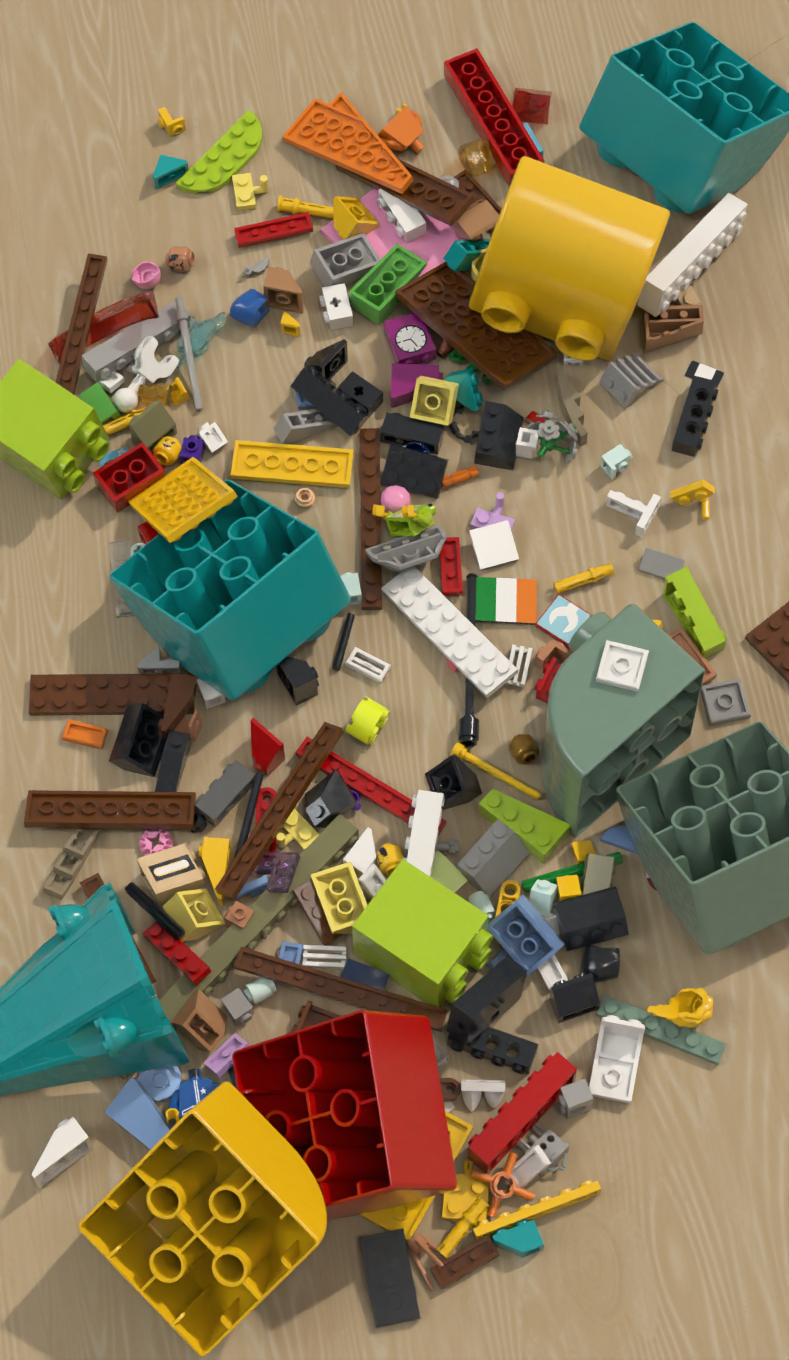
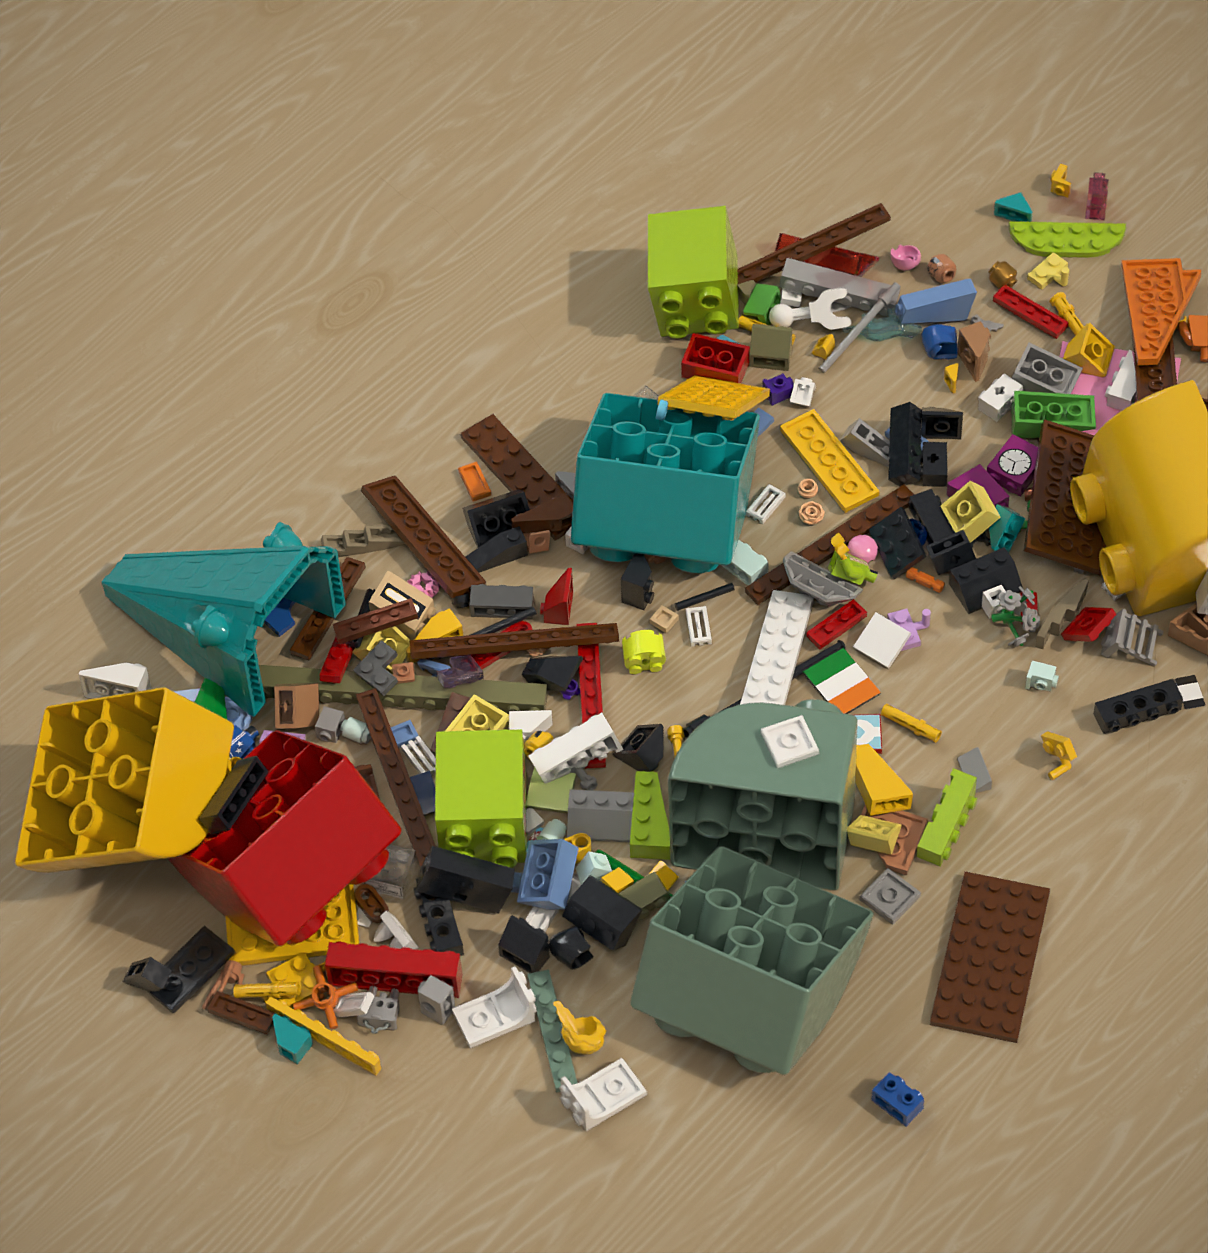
camera: 55 degrees right, 10 degrees down
(152, 392) = (805, 331): clear yellow hips -> none
(153, 1089) = (212, 698): none -> green slope
(167, 451) = (762, 369): yellow head -> none
(179, 543) = (662, 410): none -> medium azure tile
(179, 902) = (375, 621): none -> copper plate
(211, 110) = (1097, 197): none -> clear pink hips
(218, 284) = (937, 304): none -> medium blue slope
(220, 937) = (373, 669): none -> dark grey plate
(224, 223) = (1002, 274): none -> pearl gold head
(297, 830) = (514, 666): light yellow plate -> none
(297, 1128) = (233, 795): none -> black brick
(331, 505) = (811, 507): none -> light nougat plate
(342, 685) = (664, 619): none -> tan plate
(375, 1316) = (147, 975): none -> black slope
(456, 440) = (950, 552): none -> black brick
(598, 395) = (1088, 624): none -> red plate
(634, 509) = (1011, 728): white bracket -> none
(750, 1031) = (601, 1094): none -> white bracket

